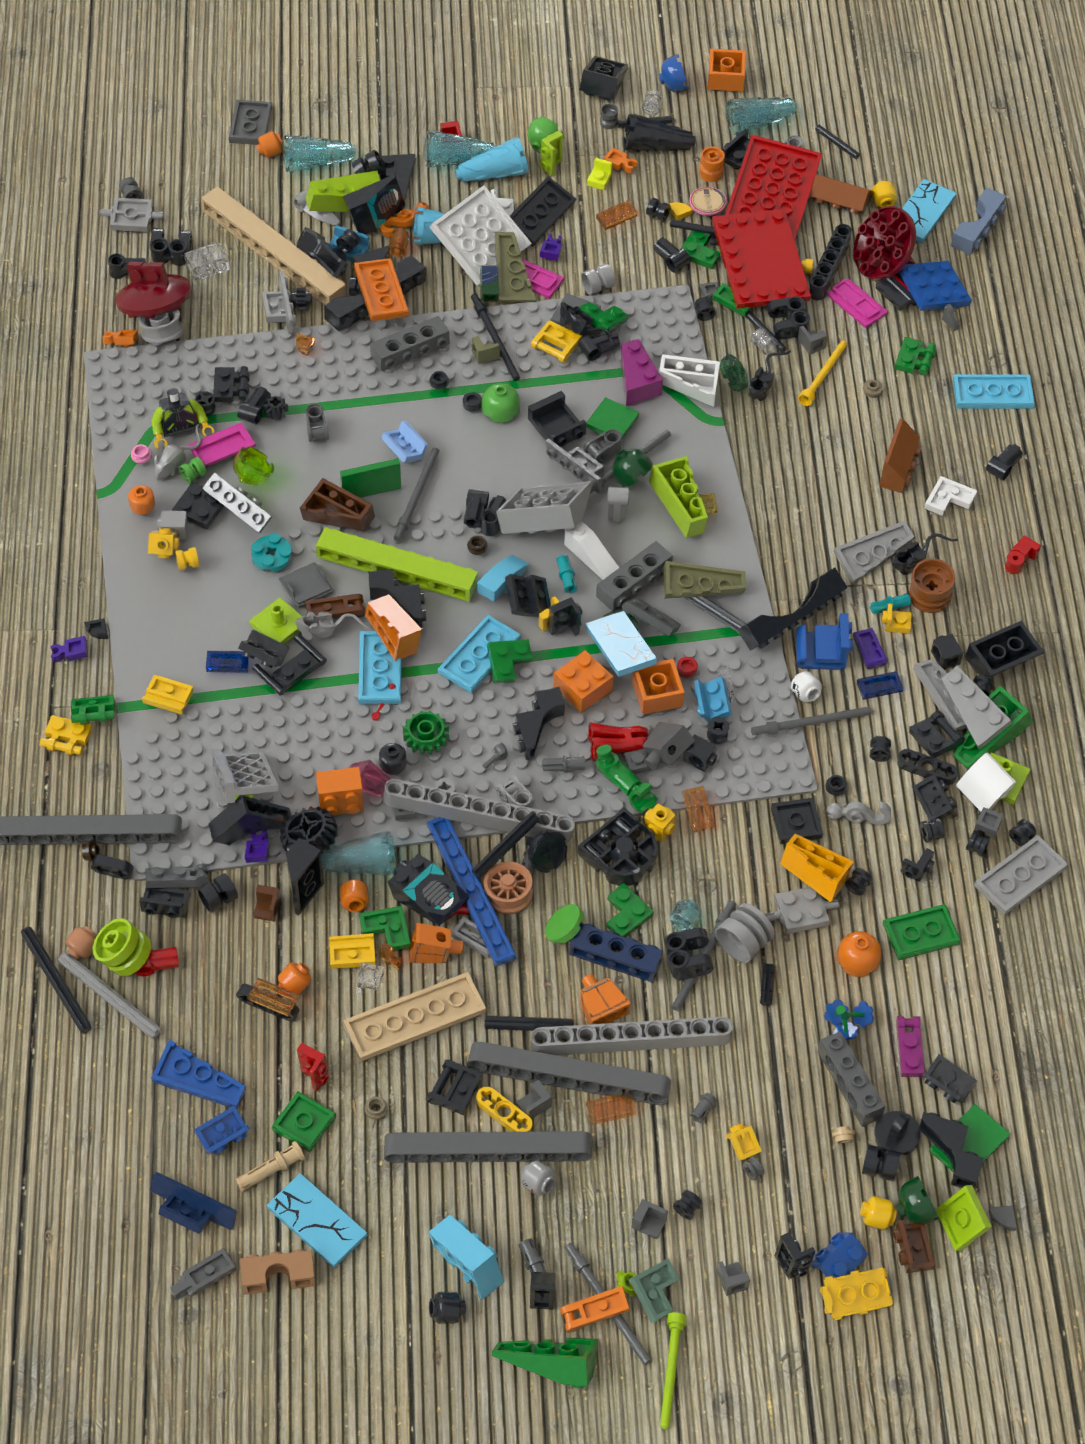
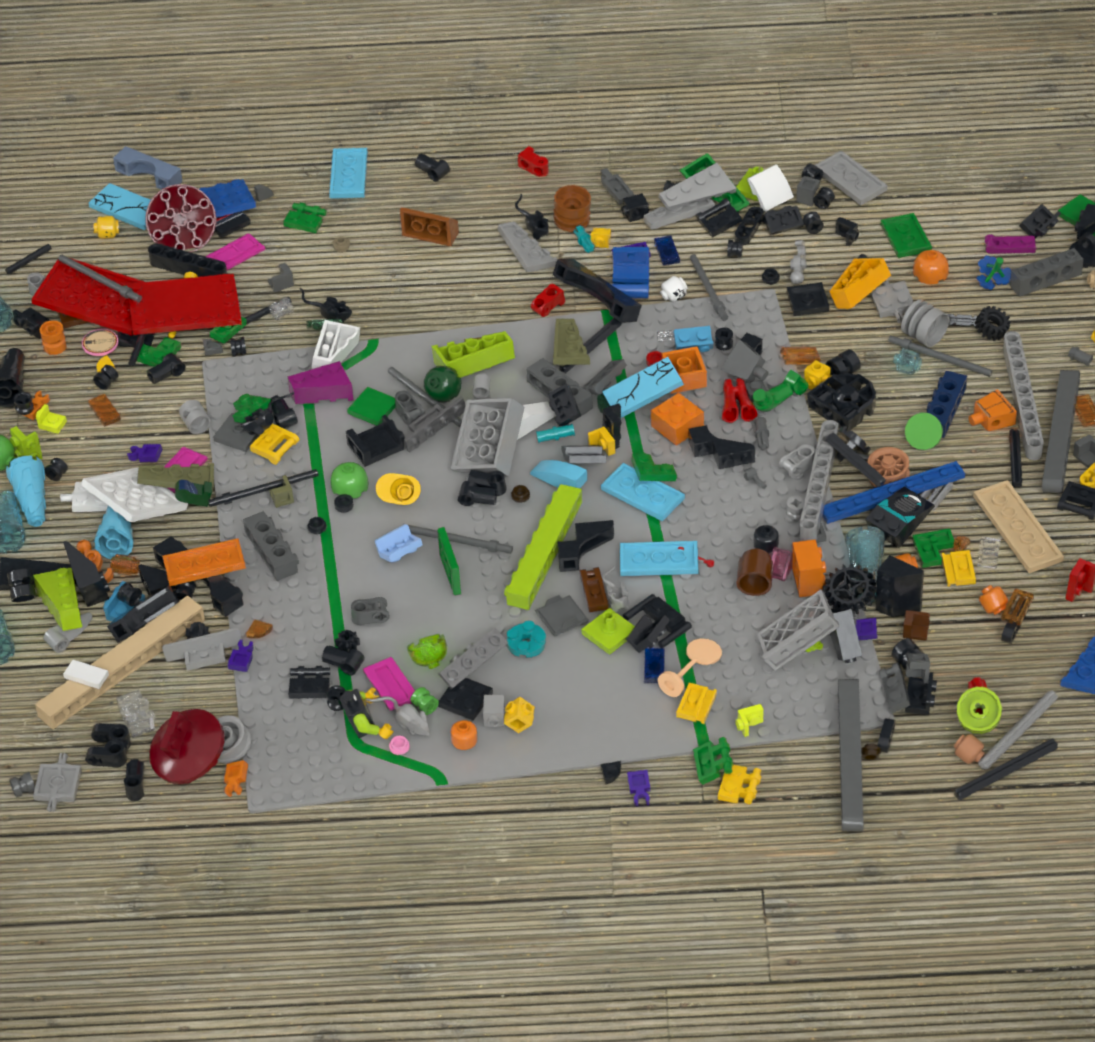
camera: 85 degrees left, 10 degrees down
(137, 734) = (749, 717): none -> neon yellow bracket
(187, 558) = (535, 695): yellow wheel -> none
(189, 890) = (918, 666): none -> dark grey panel
(239, 704) = (699, 651): none -> light nougat piece
(246, 216) = (86, 674): none -> white tile
(264, 329) = (241, 659): none -> dark purple plate
(337, 507) = (477, 587): reddish brown wedge -> none
(340, 744) = (755, 572): none -> reddish brown piece
(394, 627) = (624, 537): orange wedge -> none
(425, 732) = (734, 520): green gear -> none
(432, 944) = (952, 507): orange torso -> none
(478, 439) = (398, 489): none -> yellow piece
(529, 182) = (56, 469): none -> black wheel
(542, 209) = (92, 457): black tile -> none
(594, 573) = (564, 405): none -> black bracket
(612, 147) = (23, 403): none -> black wheel
(632, 911) = (902, 397): green plate -> none
(678, 954) = (947, 362): black piece -> none
(679, 850) = (844, 363): none -> black wheel
(764, 203) = (123, 290): none -> dark grey bar
(767, 1010) = (989, 330): none -> black tyre
(784, 569) = (548, 300): none -> red leg
(794, 311) = (259, 285): black piece -> none
(807, 395) = (349, 284): yellow piece -> none
(840, 194) = (105, 248): dark orange slope -> none
(949, 491) = (466, 202): white plate -> none
(982, 630) = (615, 186): none -> dark grey hinge
(1003, 650) = (640, 171): black slope -> none

